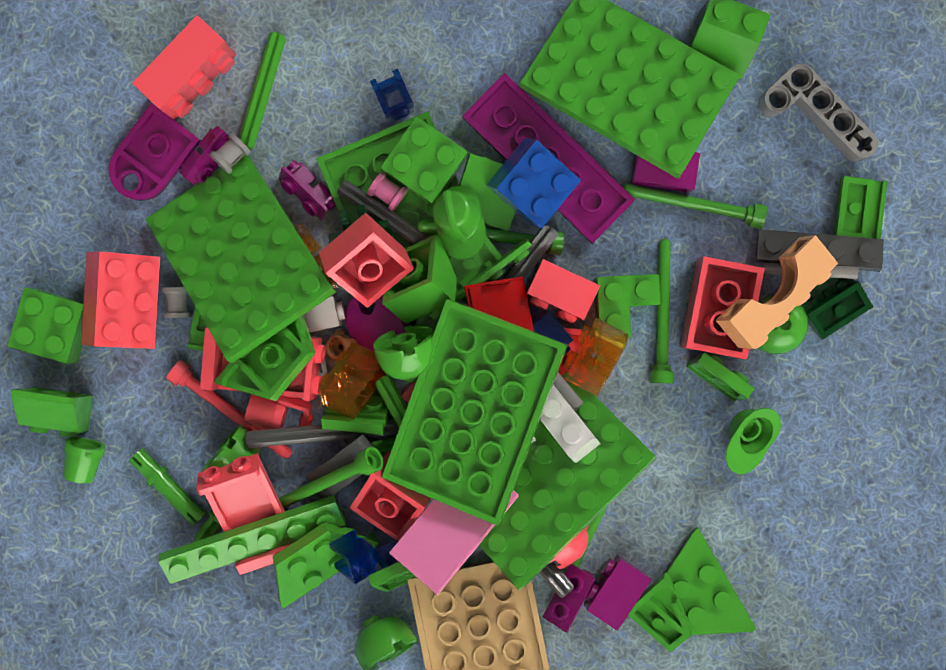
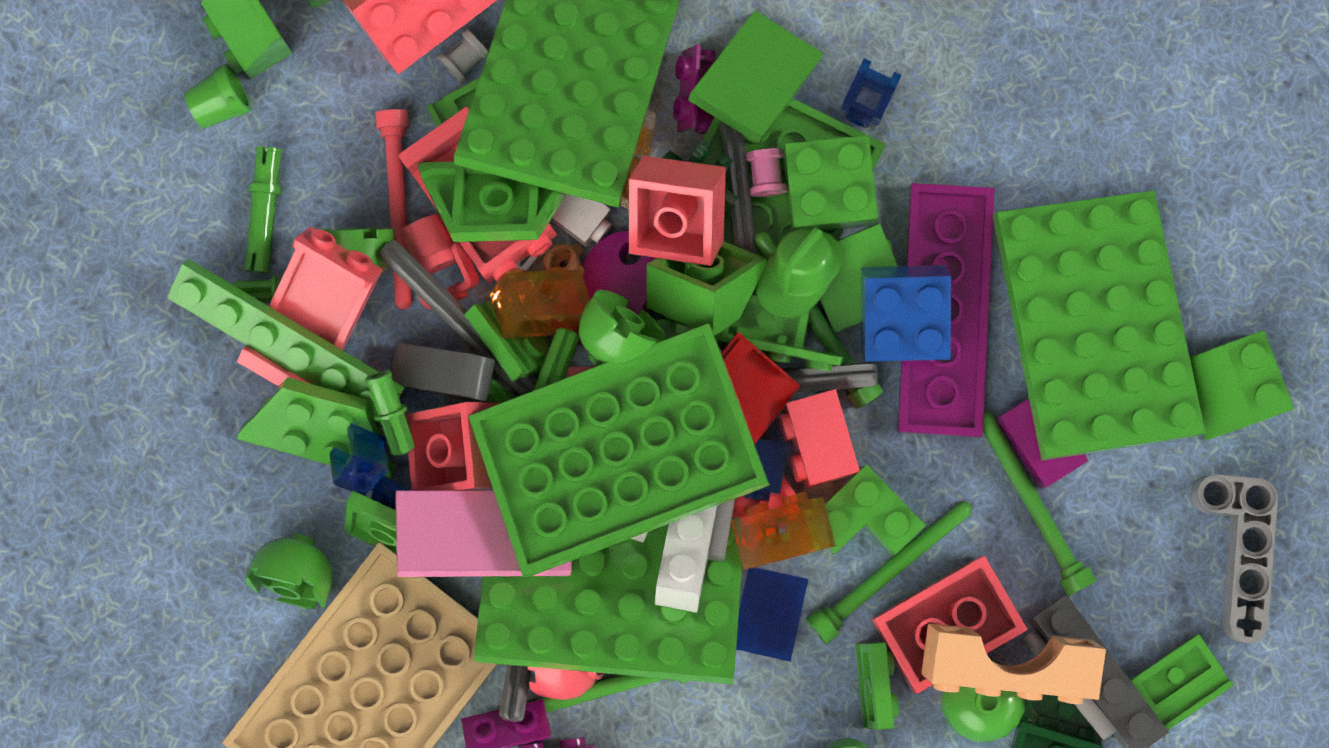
camera: 50 degrees right, 5 degrees down
(328, 150) = (756, 77): none -> bright green tile
(341, 516) = (390, 412): none -> bright green axle
(366, 462) = (471, 385): bright green piece -> none
(631, 399) = (770, 613): none -> clear blue plate

